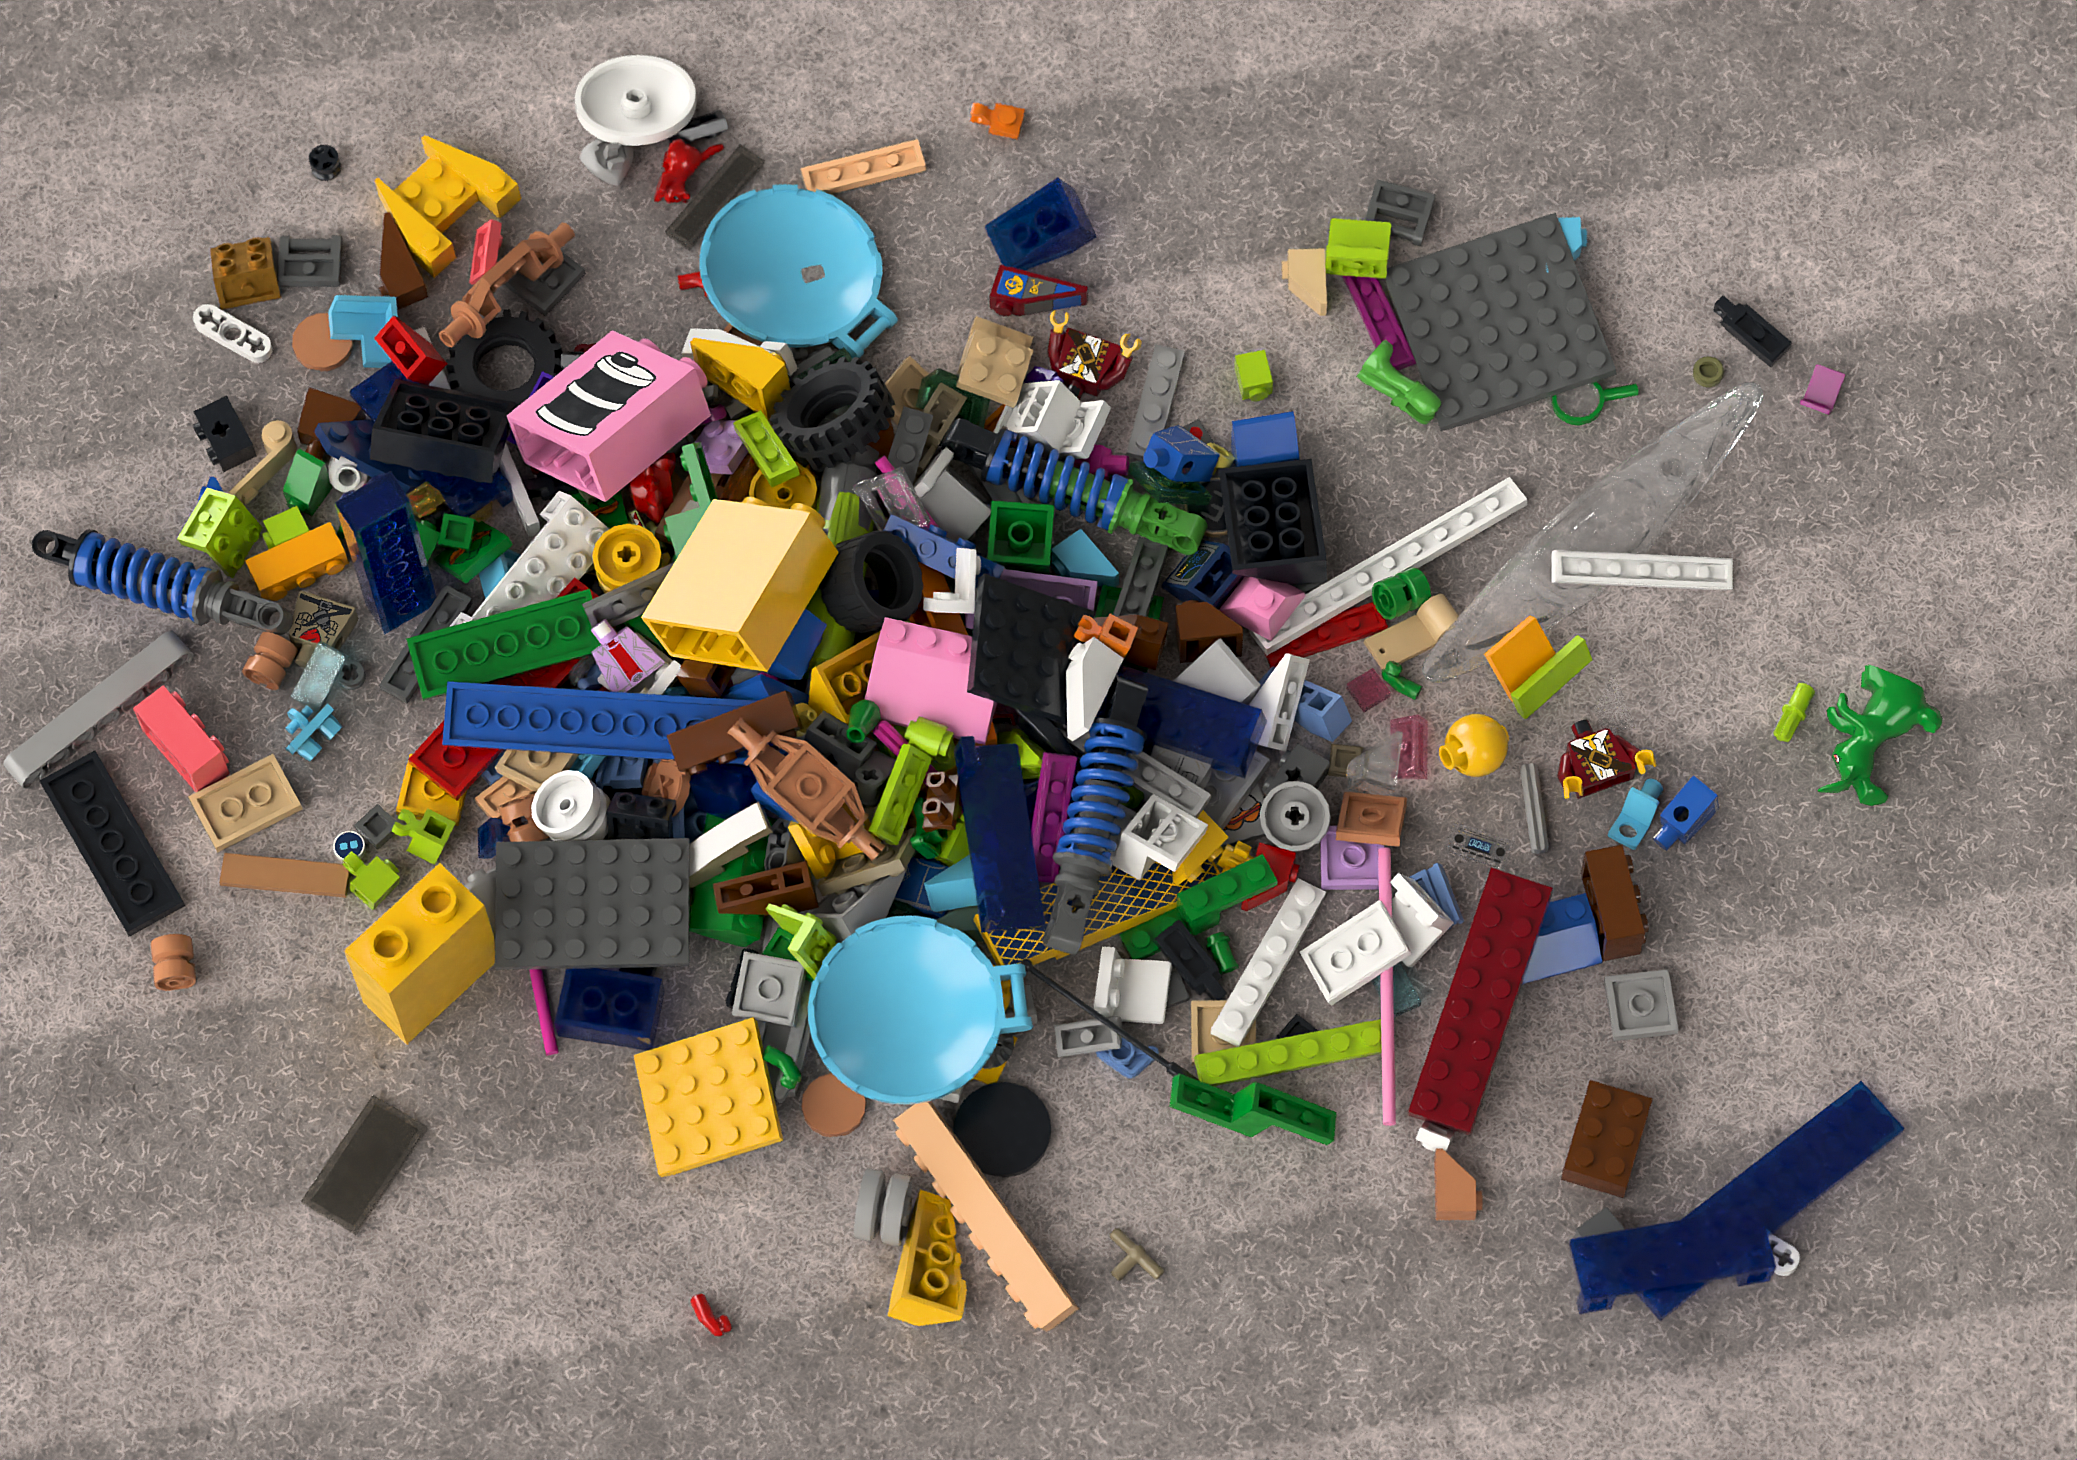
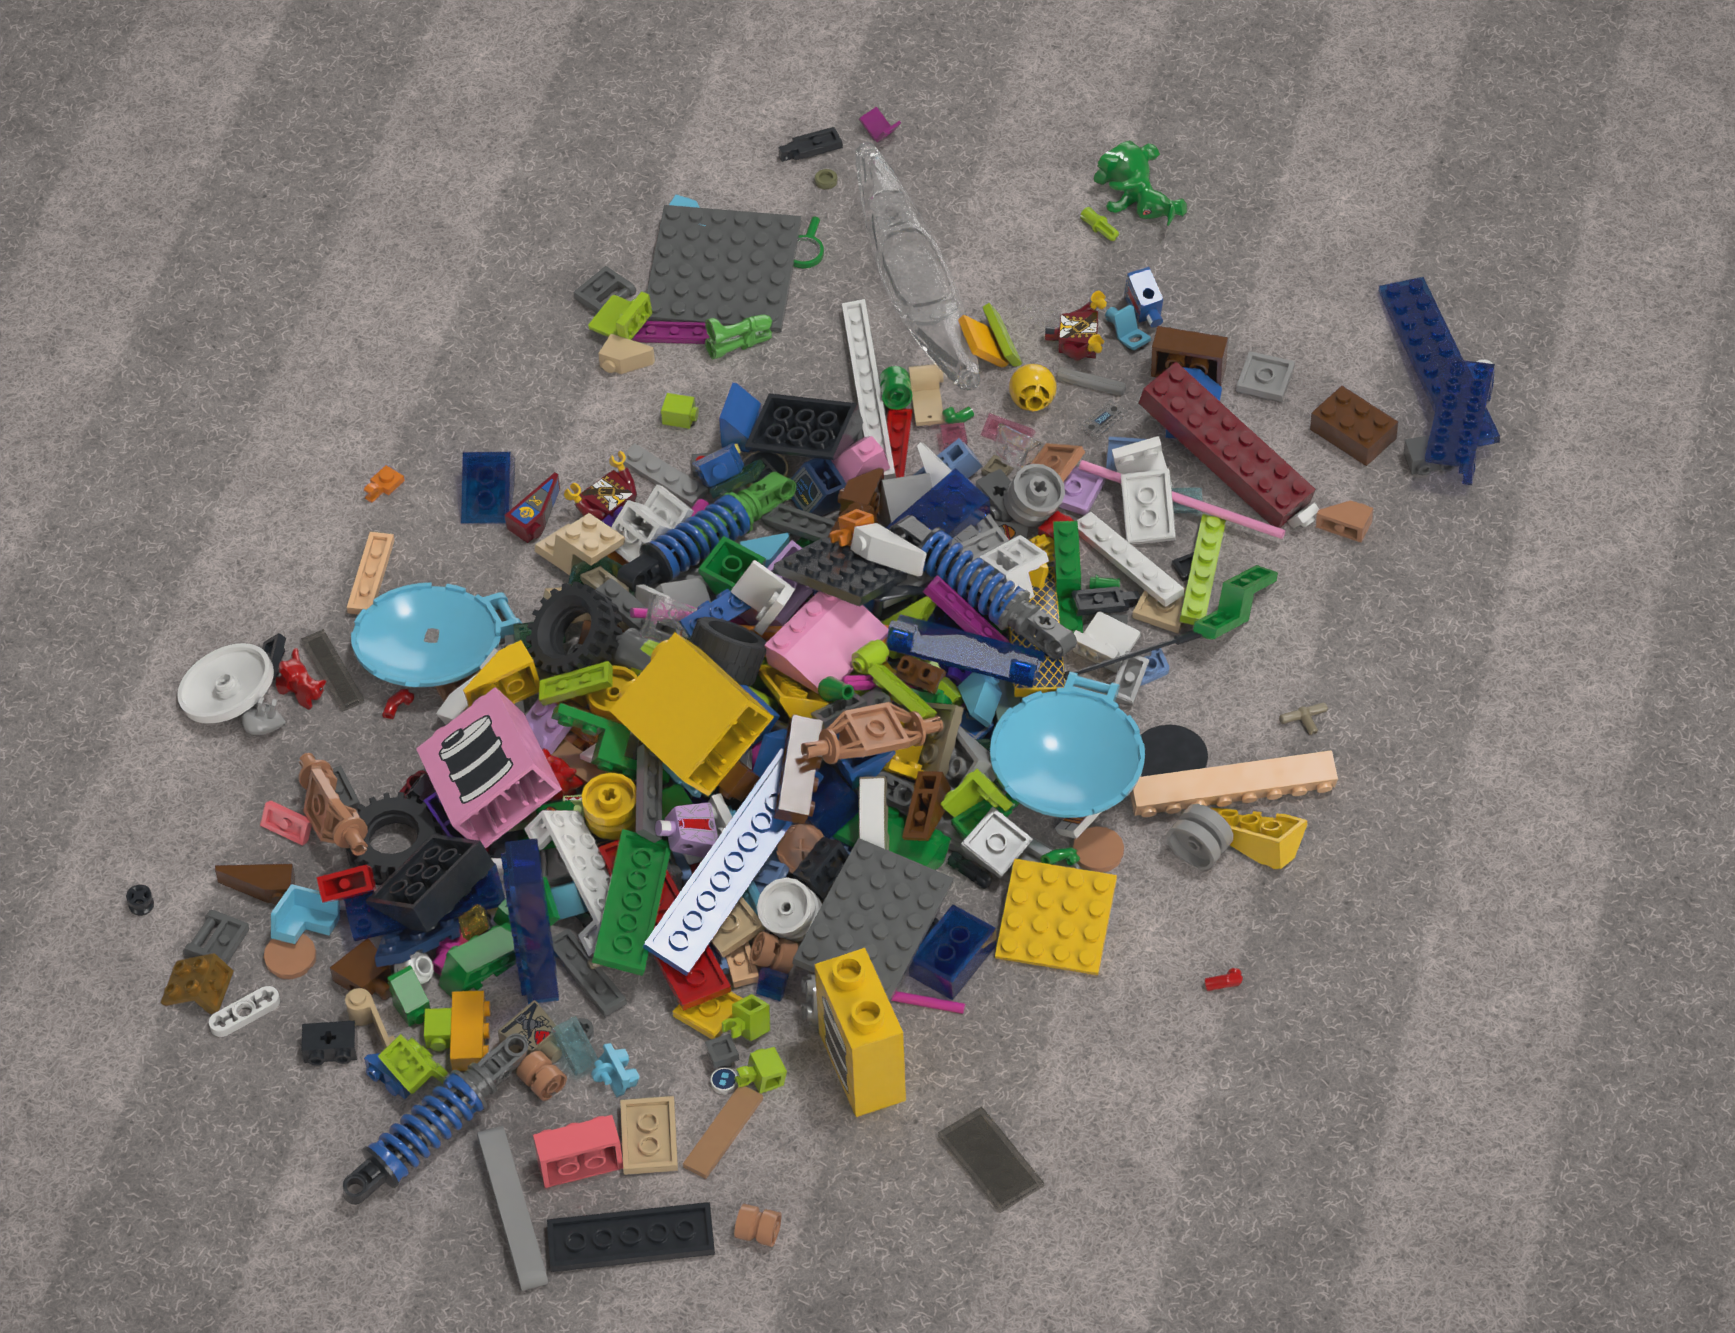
camera: 65 degrees left, 15 degrees down
(440, 195) = (216, 833): yellow wedge -> none
(1642, 570) = (956, 255): white tile -> none

